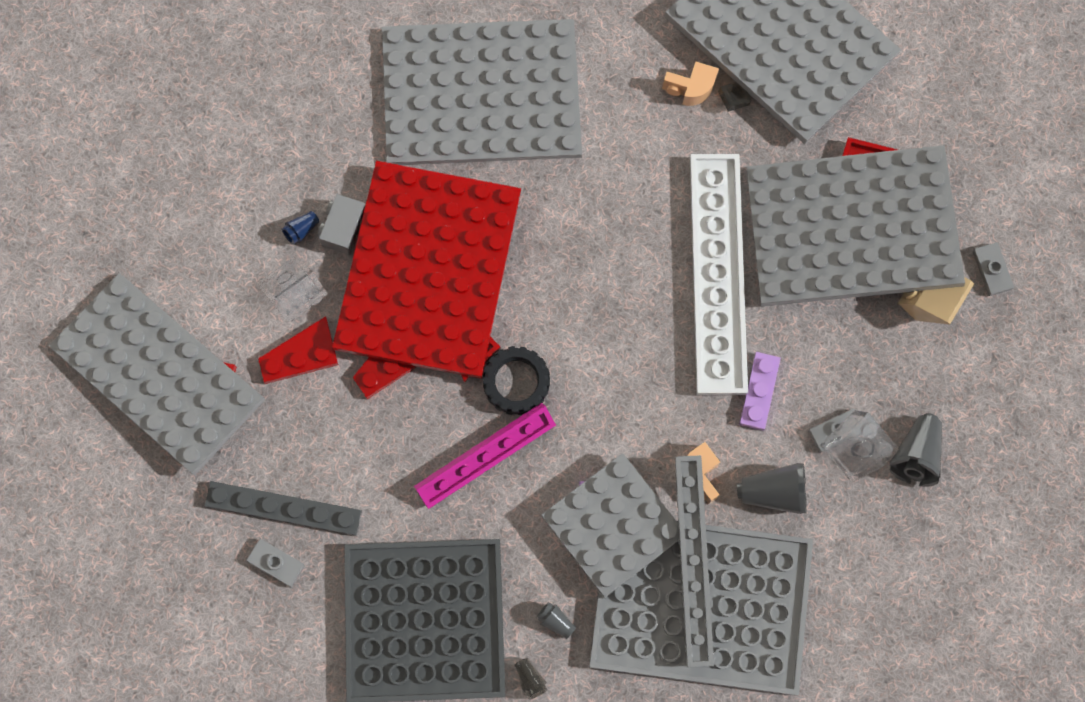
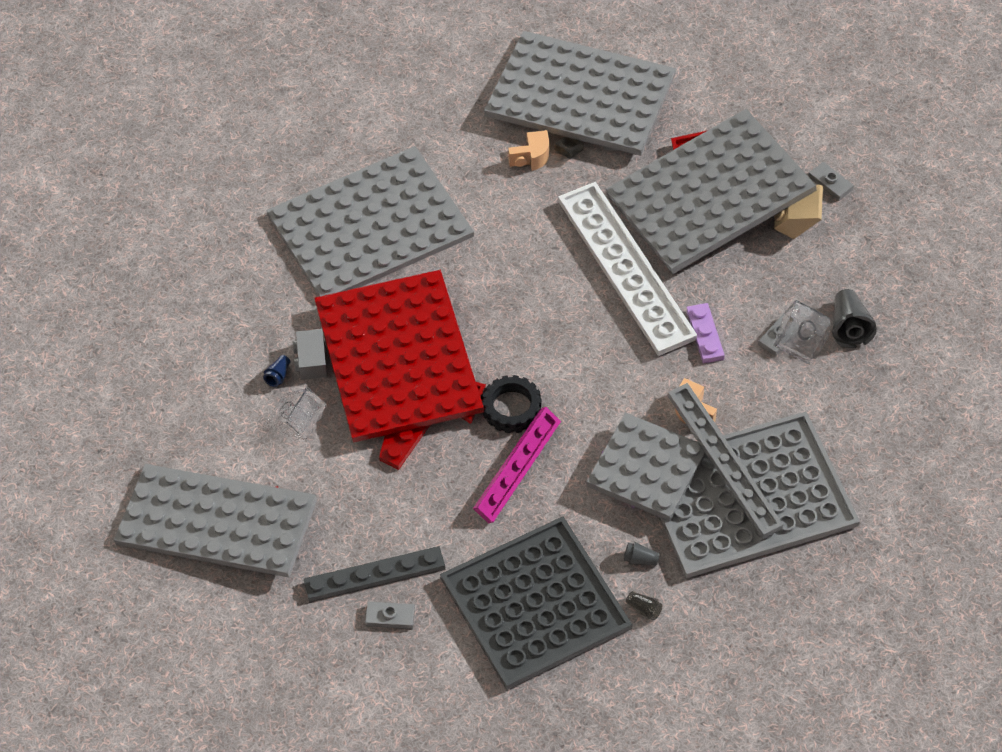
camera: 20 degrees left, 20 degrees down
(301, 354) = (327, 460): red wing -> none
(776, 489) = (758, 388): dark grey cone -> none

